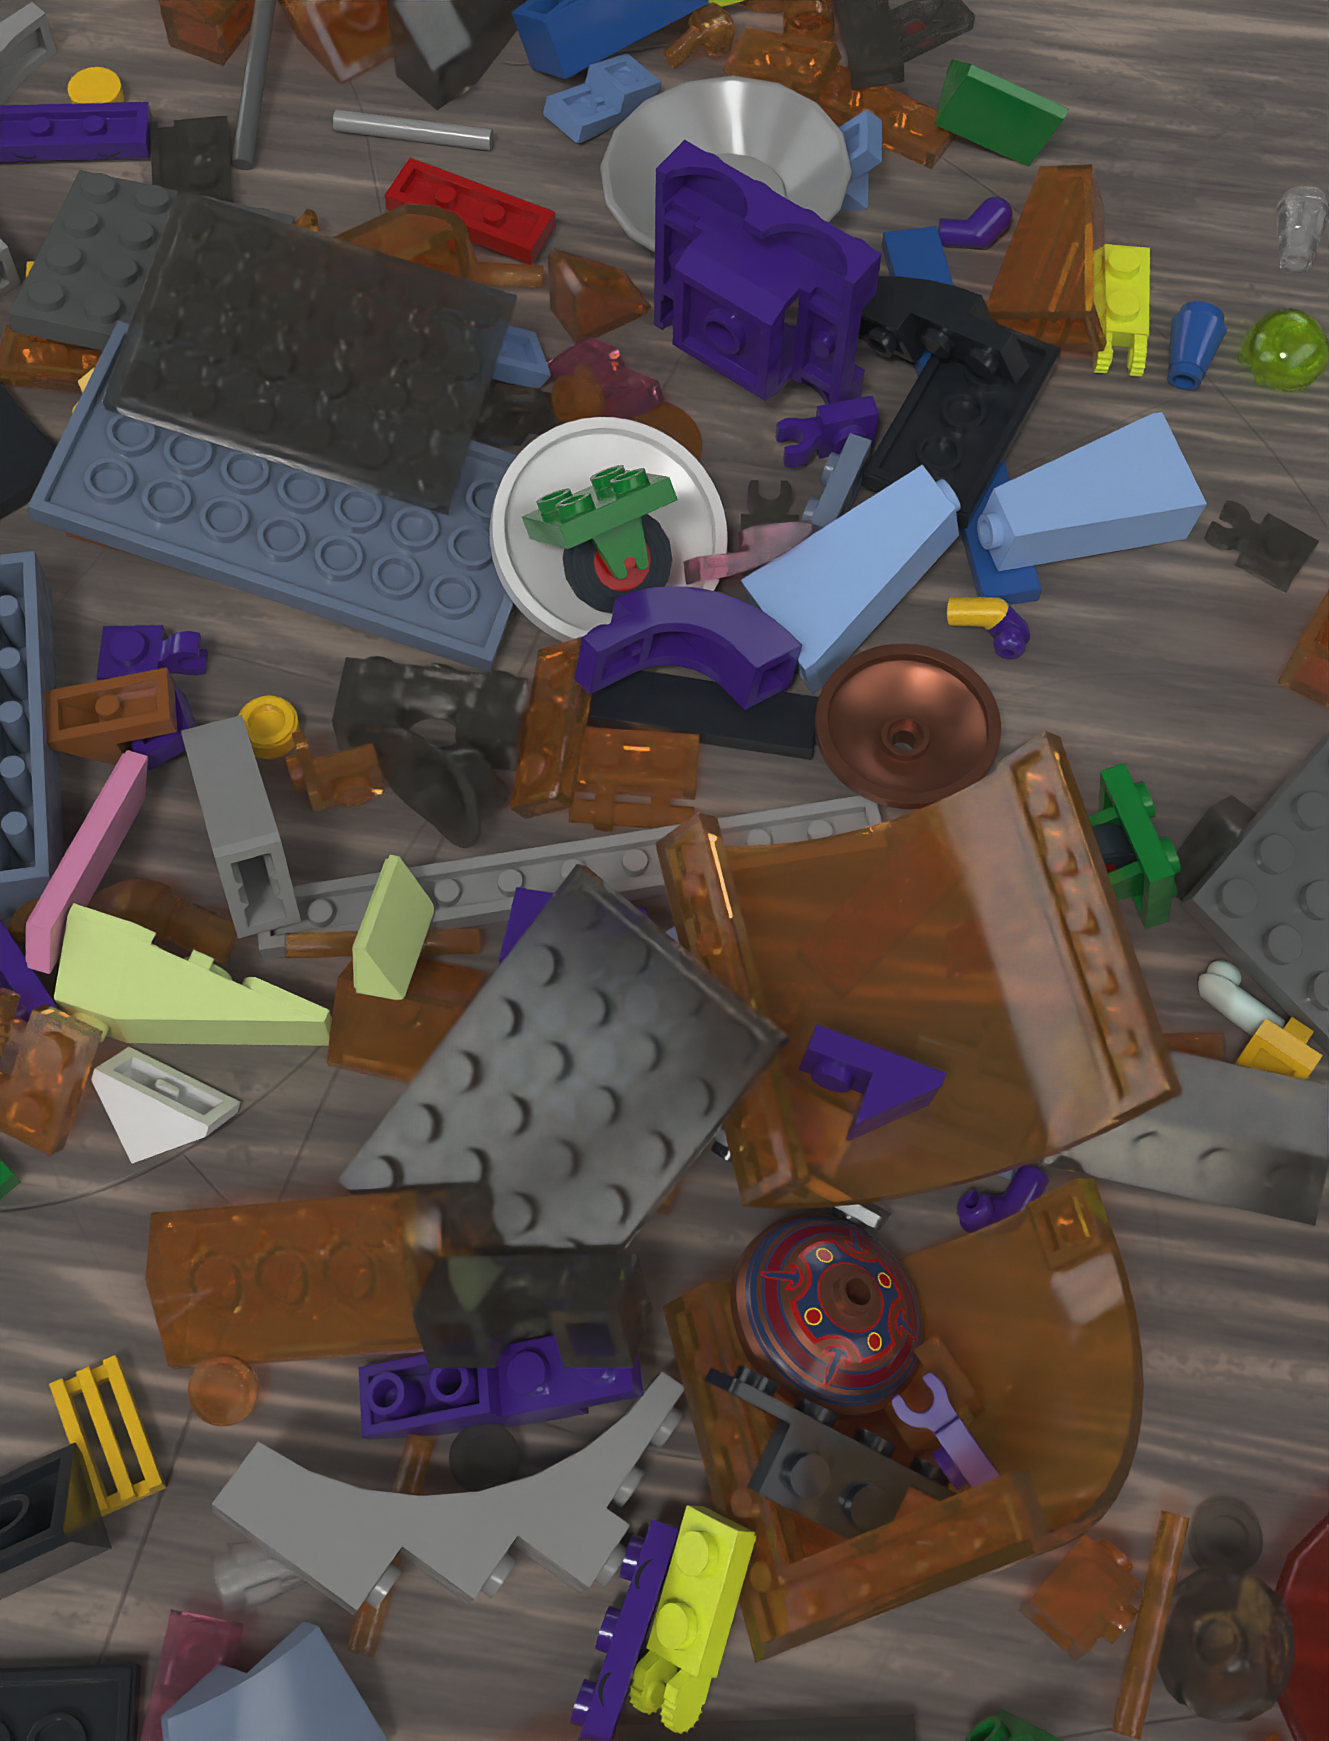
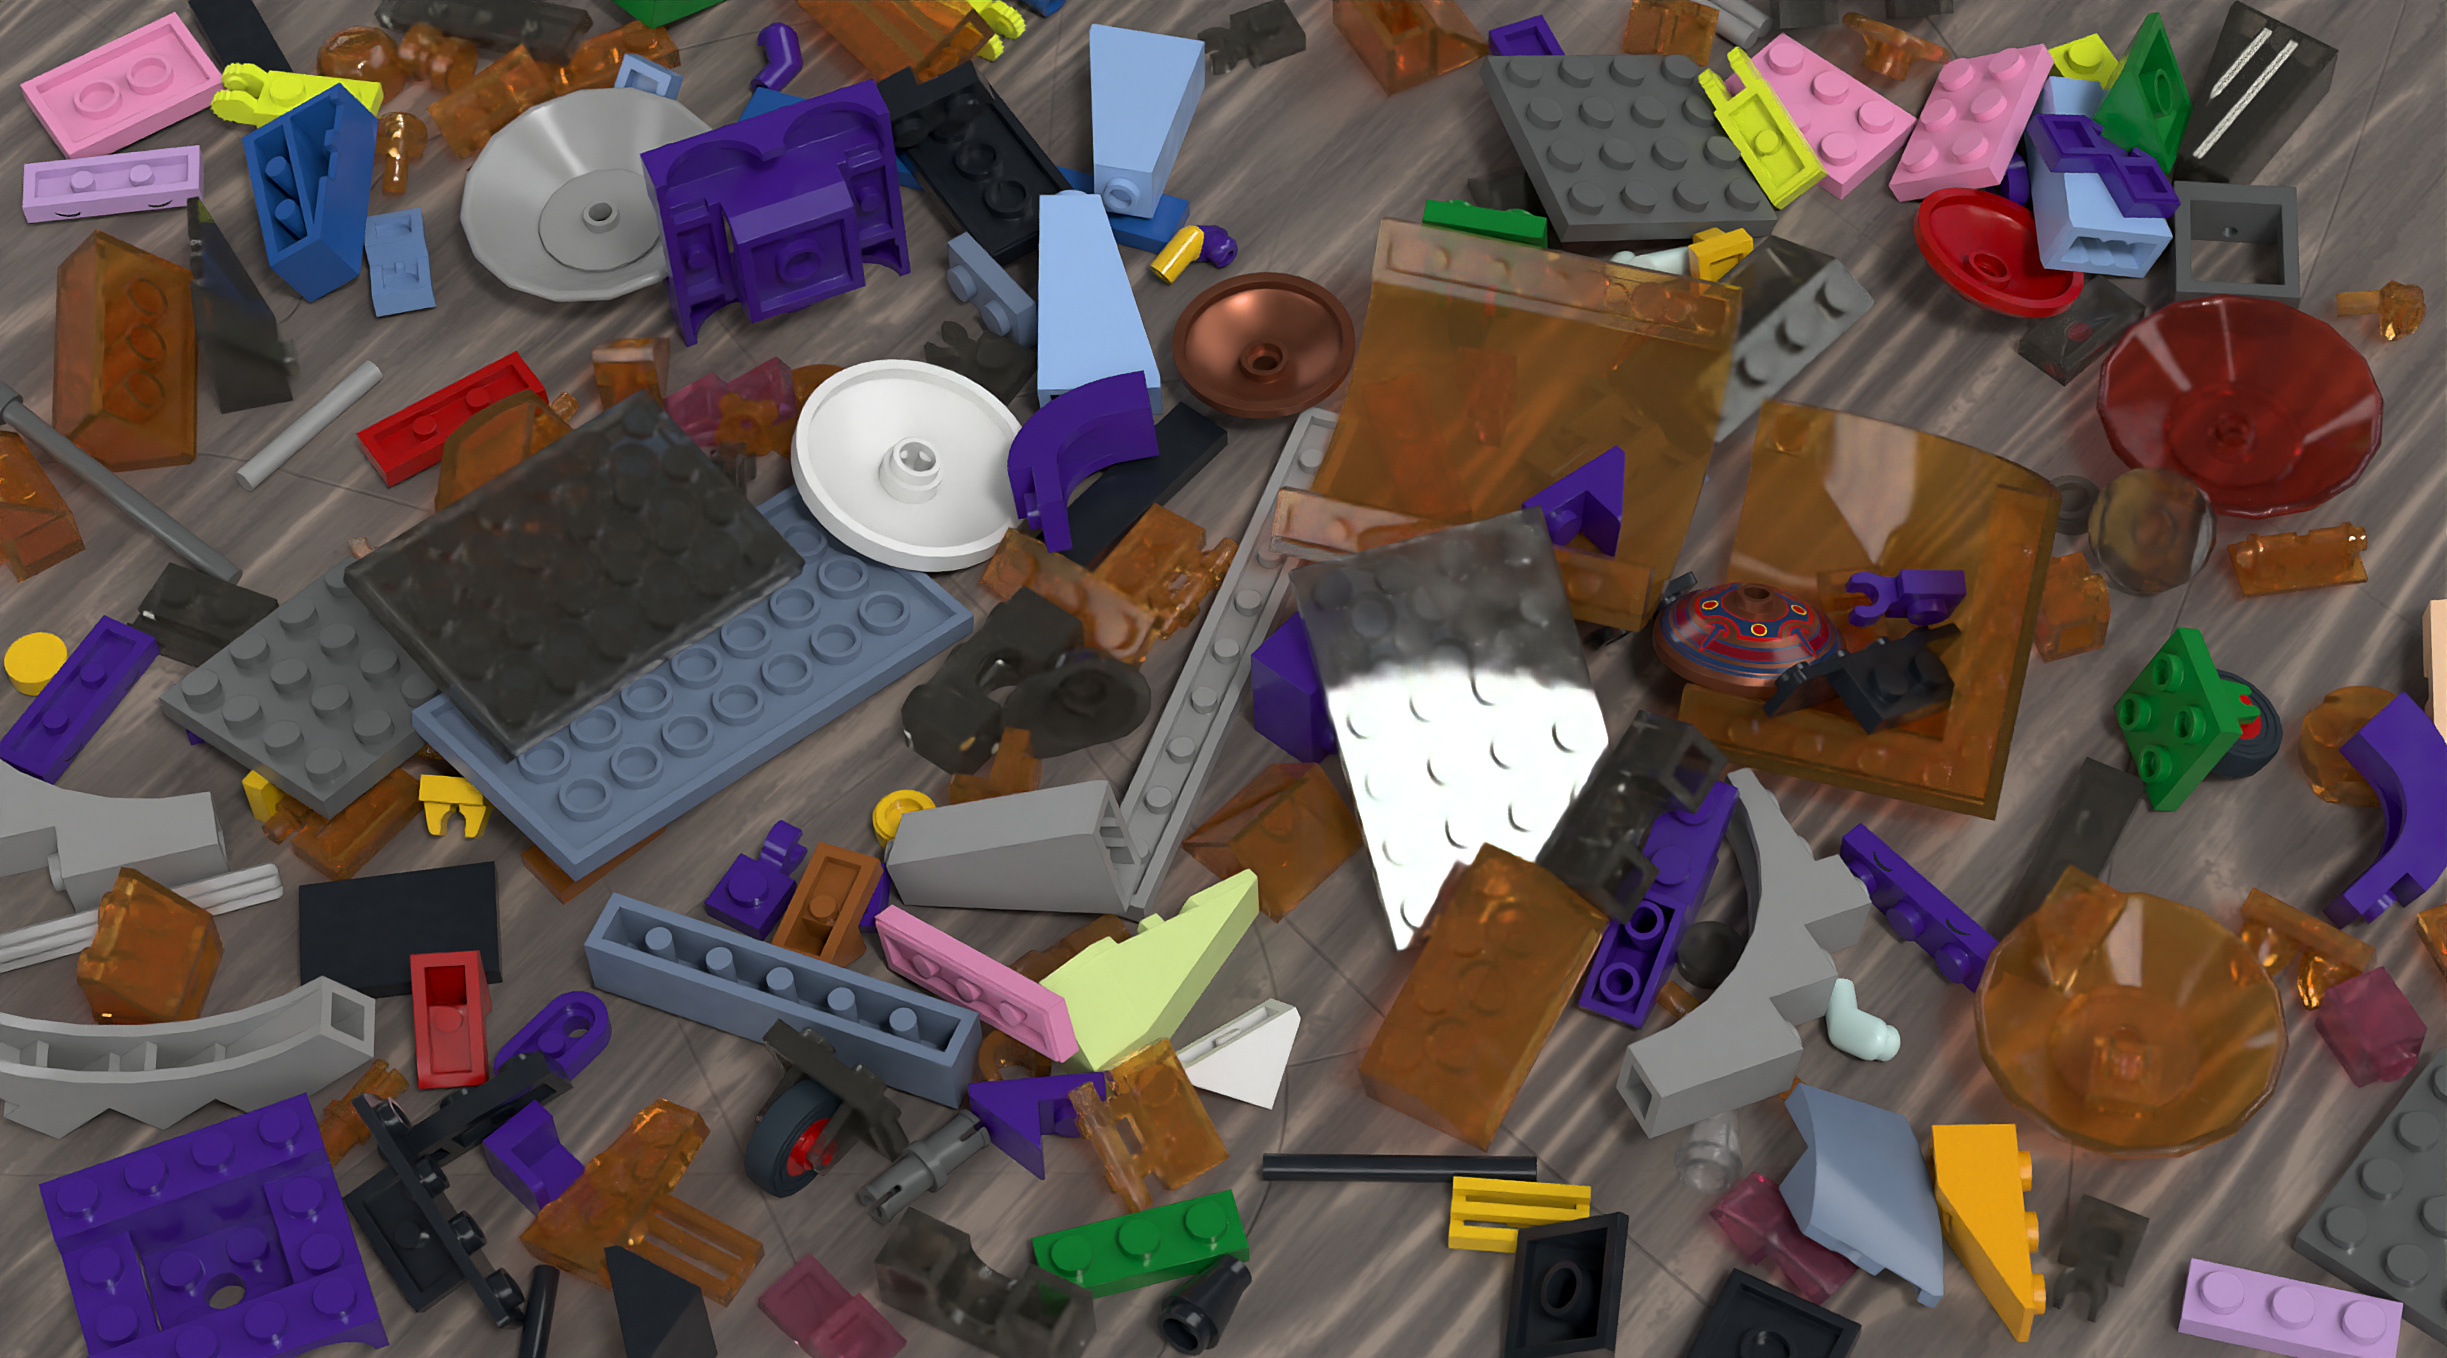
camera: 55 degrees left, 10 degrees down
(113, 1306) = (1395, 1167): none -> black bar
(223, 1390) = (1536, 1109): clear orange plate -> none
(341, 943) = (1199, 817): clear orange bar -> none
(391, 933) = (1209, 788): yellowish green slope -> none
(463, 1642) = (1856, 1030): none -> light aqua arm
(608, 534) = (936, 440): green plate -> none
(692, 1618) = (1928, 837): neon yellow hinge -> none
(756, 547) = (1018, 367): clear pink slope -> none
(827, 430) = (922, 259): dark purple plate -> none
(986, 1210) = (1726, 504): dark purple arm -> none
(1150, 1625) = (2117, 580): clear orange bar -> none

